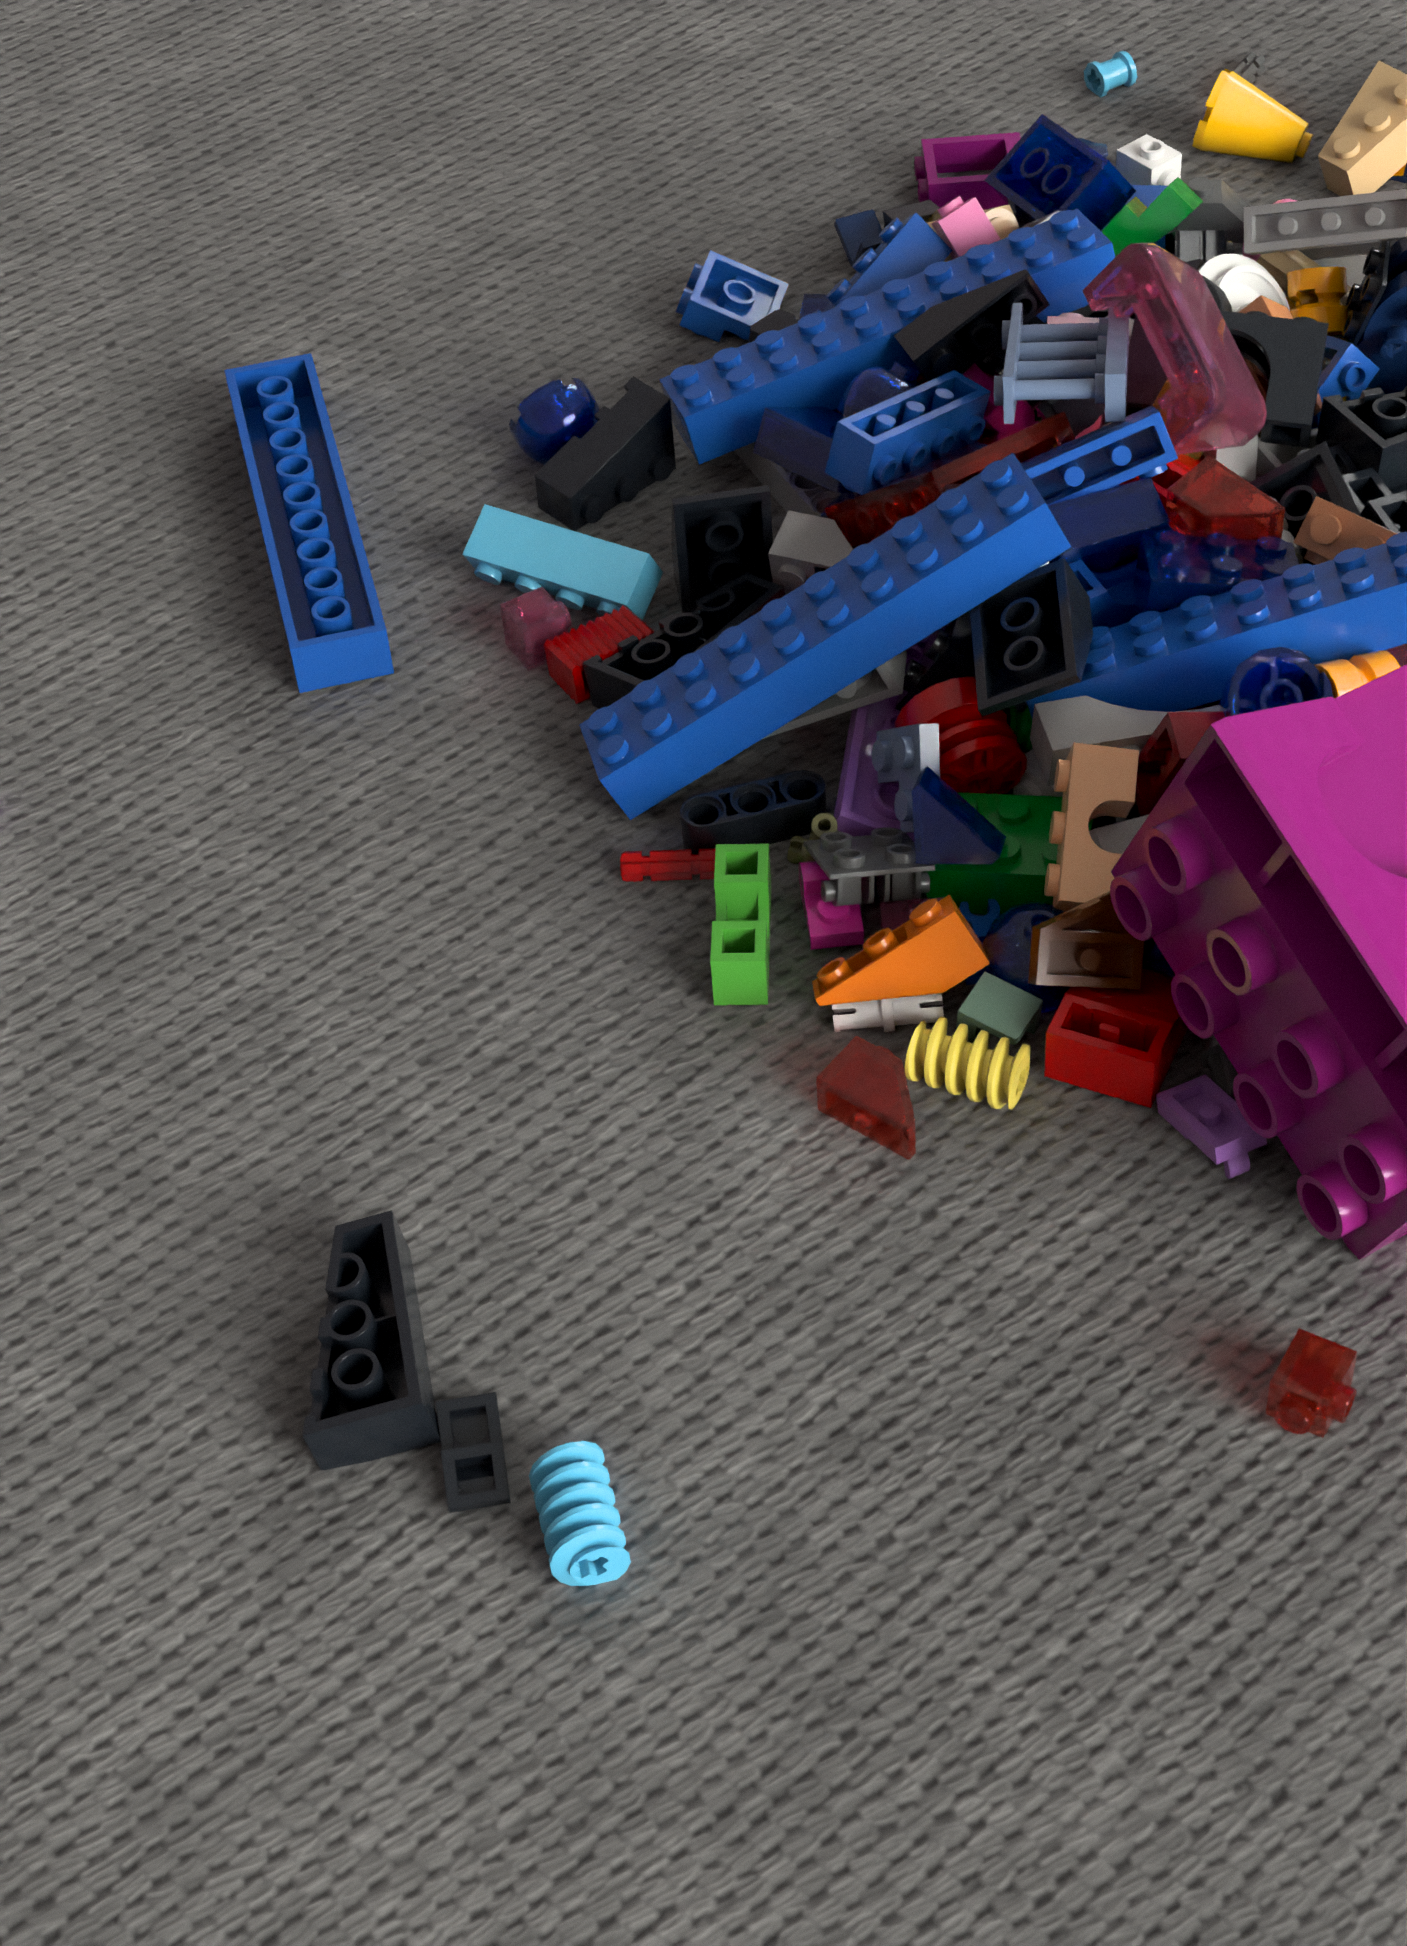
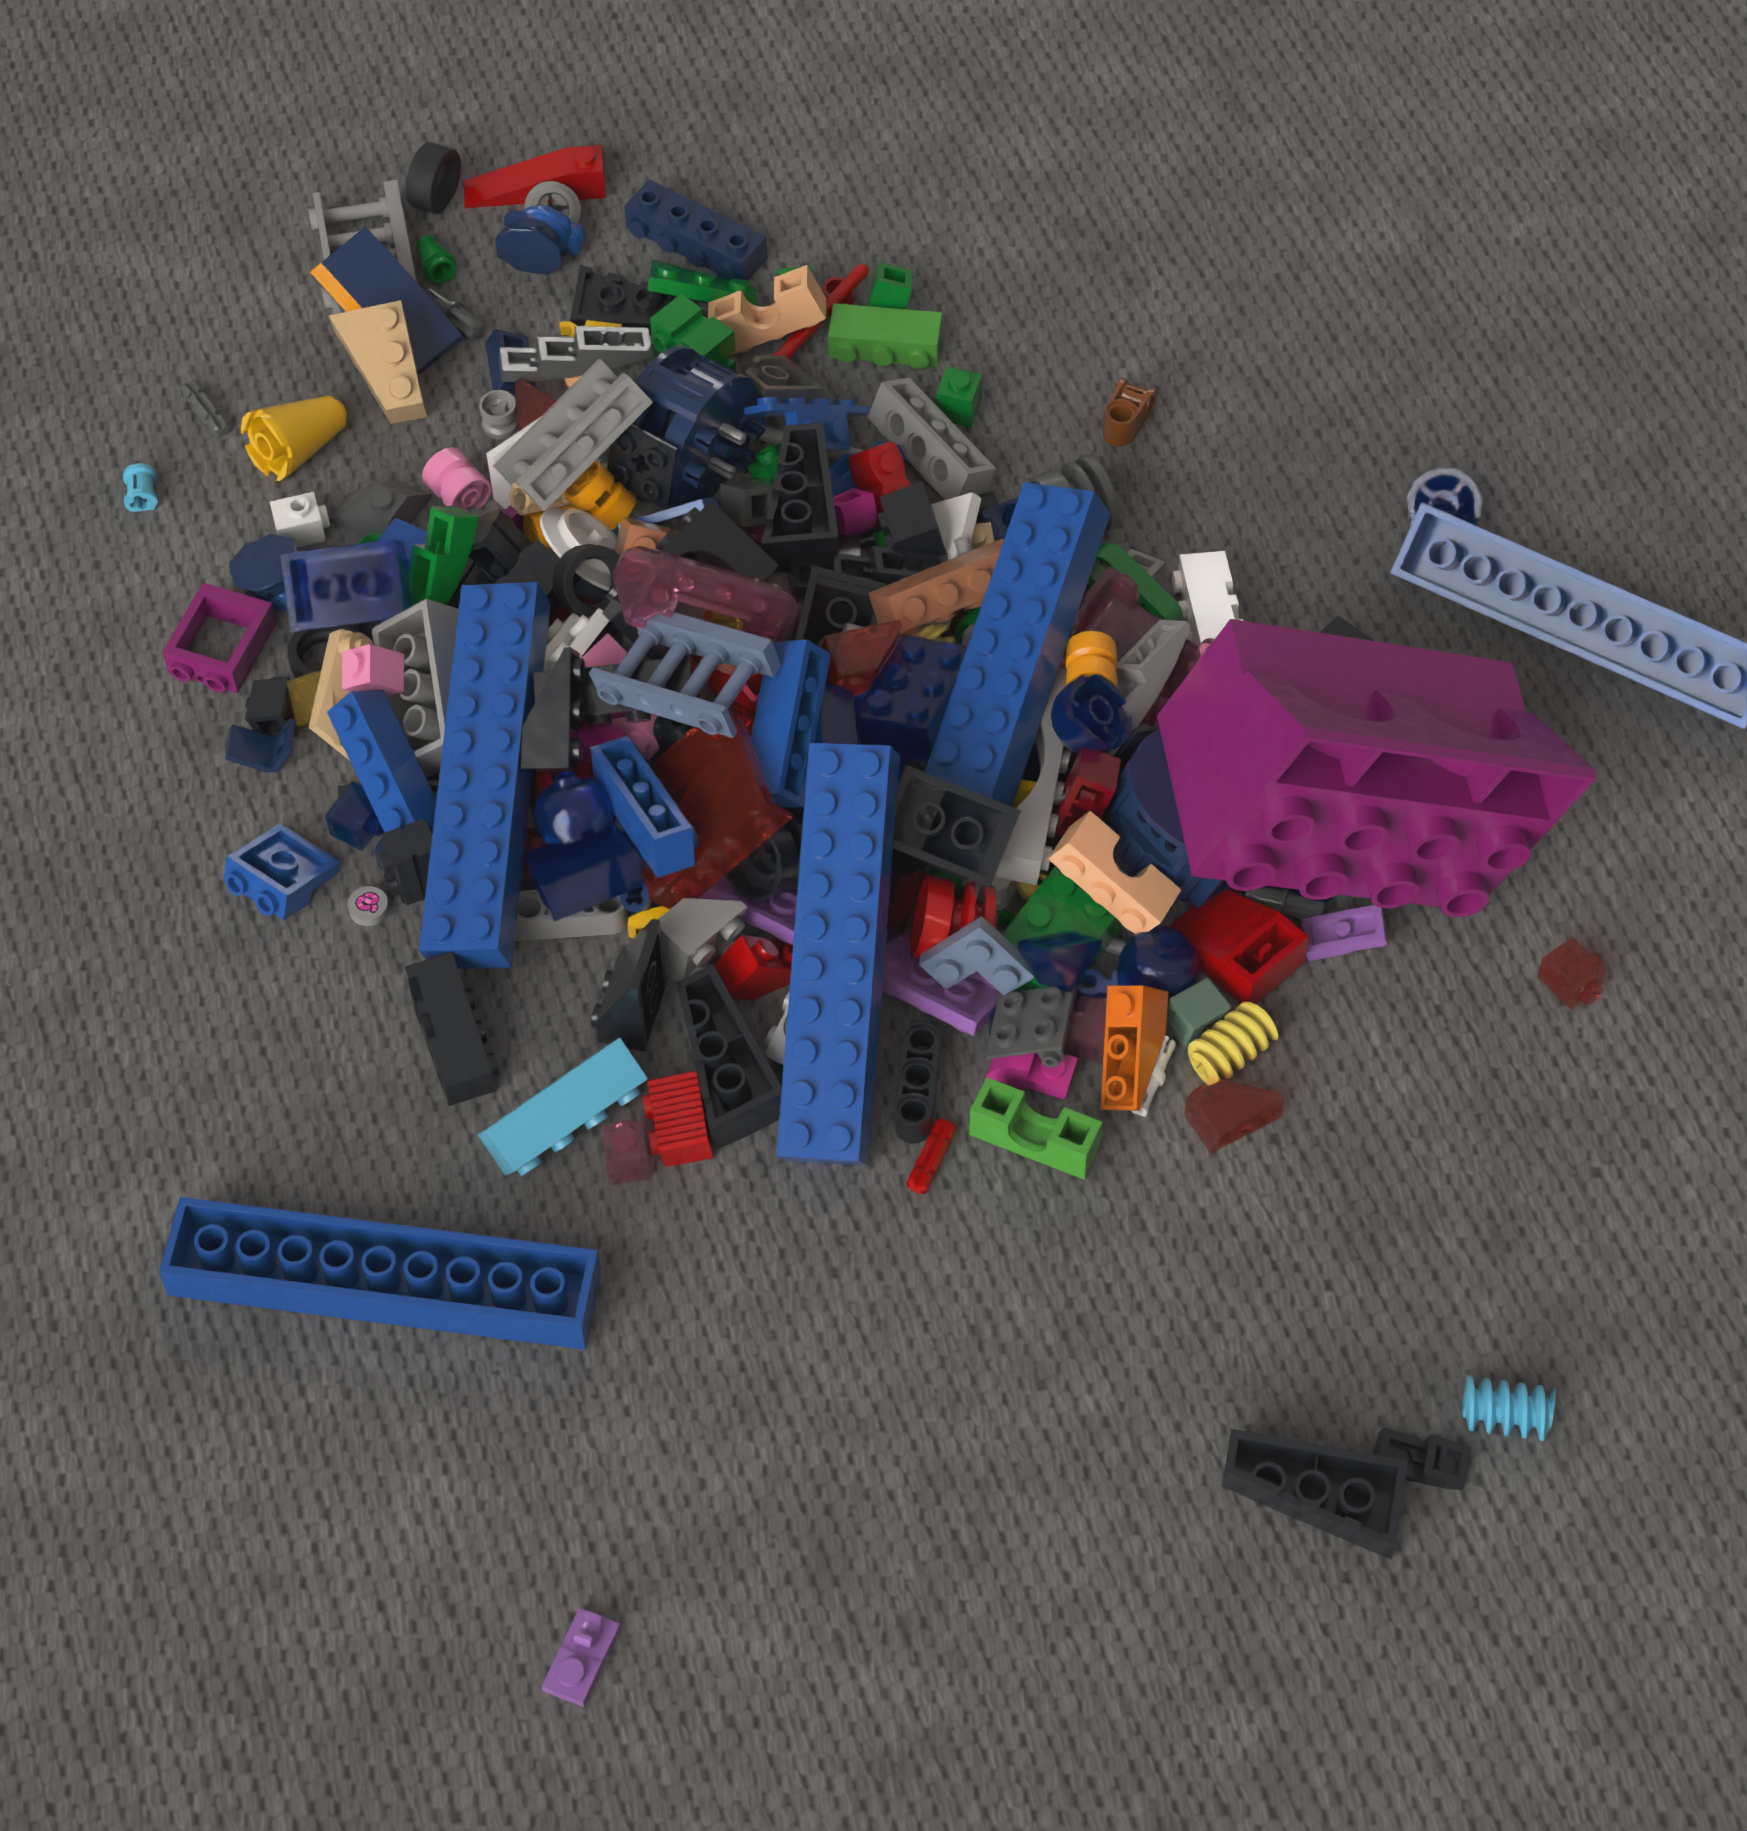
camera: 70 degrees left, 10 degrees up
(553, 417) = (383, 1046): clear blue cylinder -> none
(821, 824) = (964, 1054): olive arm -> none
(1086, 949) = (1199, 920): reddish brown wing -> none

